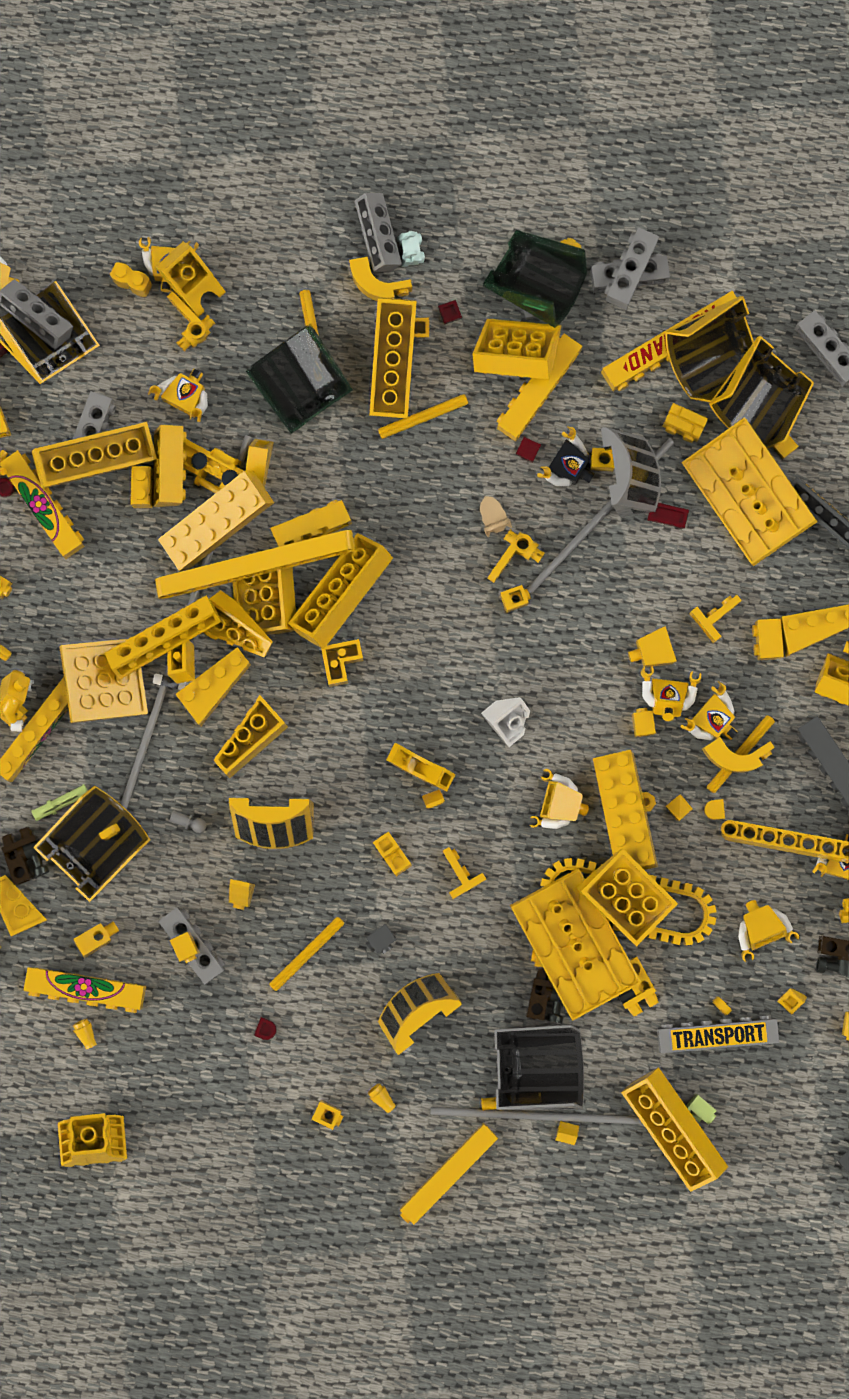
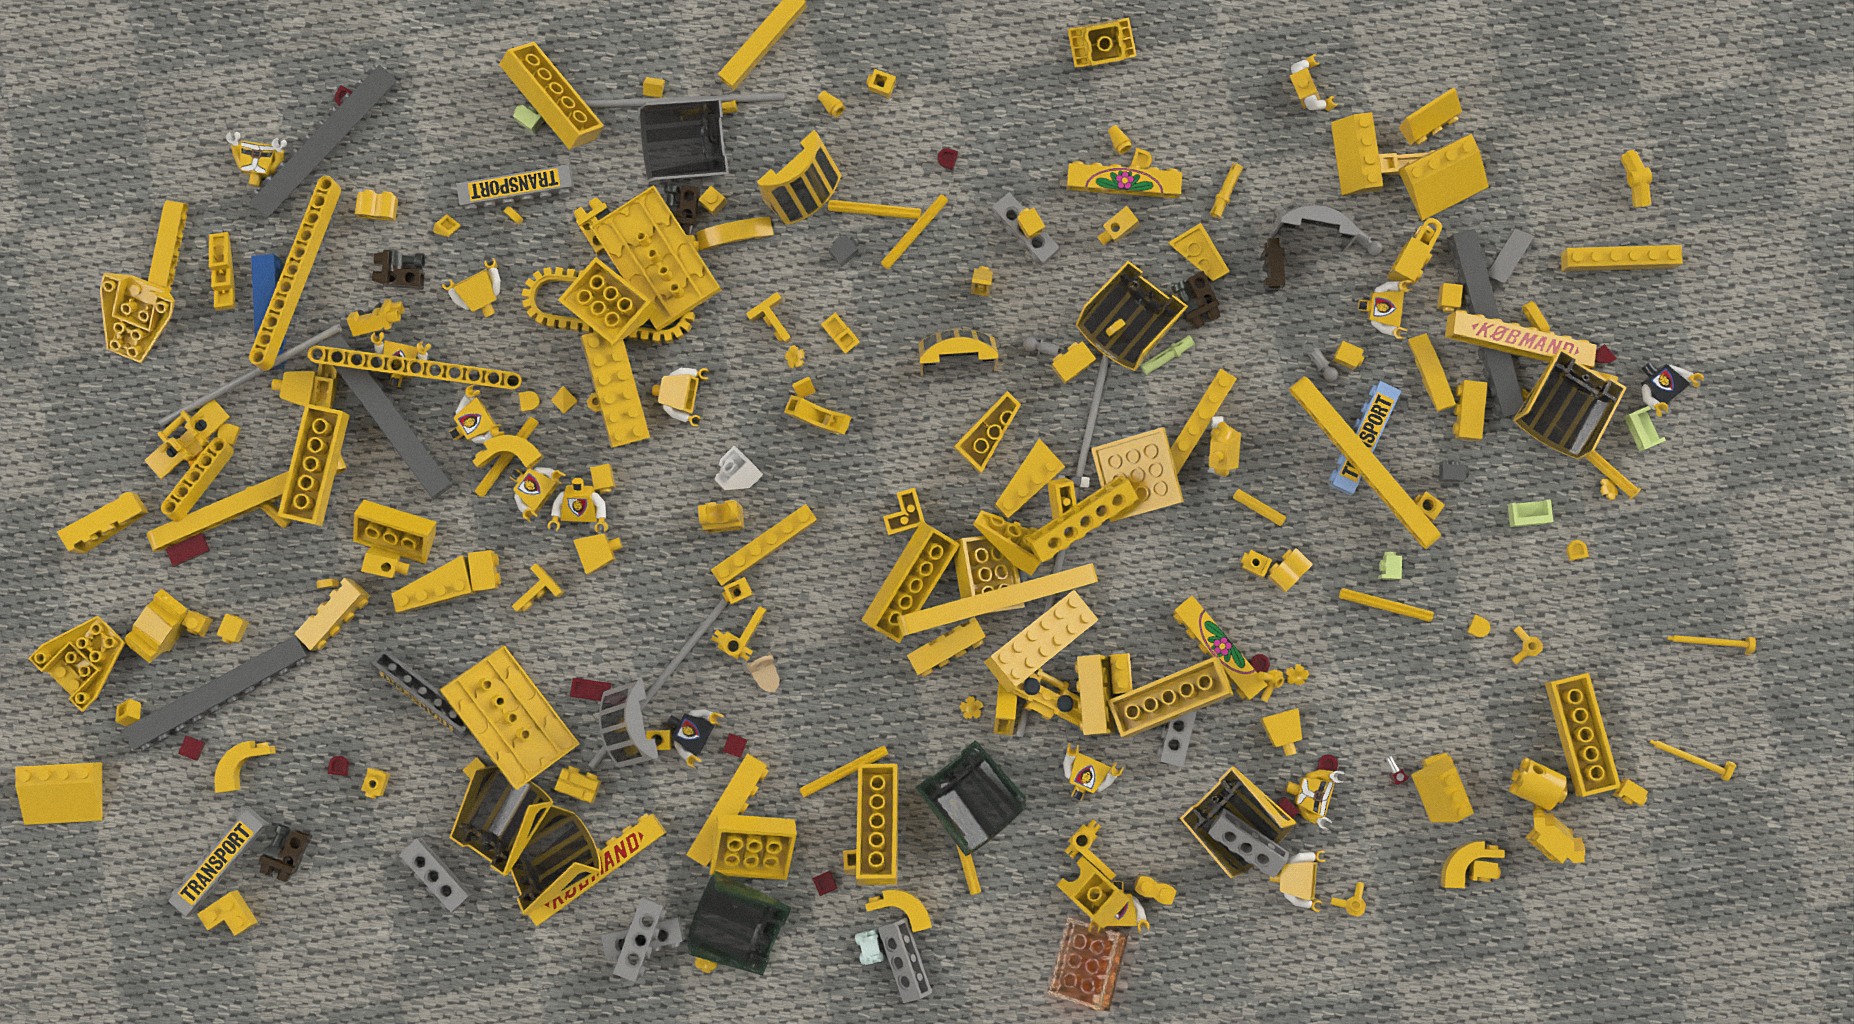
camera: 175 degrees right, 0 degrees up
(64, 1011) = (1141, 158): none -> yellow tile
(157, 802) = (1073, 362): none -> yellow brick
(203, 214) = (1088, 965): none -> clear orange slope
(292, 467) = (971, 708): none -> yellow plant
(345, 980) = (874, 209): none -> yellow axle
(440, 831) = (794, 357): none -> yellow plant
(484, 641) = (764, 545): none -> yellow brick
(492, 968) = (734, 232): none -> yellow slope
(512, 1002) = (712, 201): none -> yellow brick
(525, 671) = (721, 517): none -> yellow brick
(771, 792) = (474, 419): none -> torso

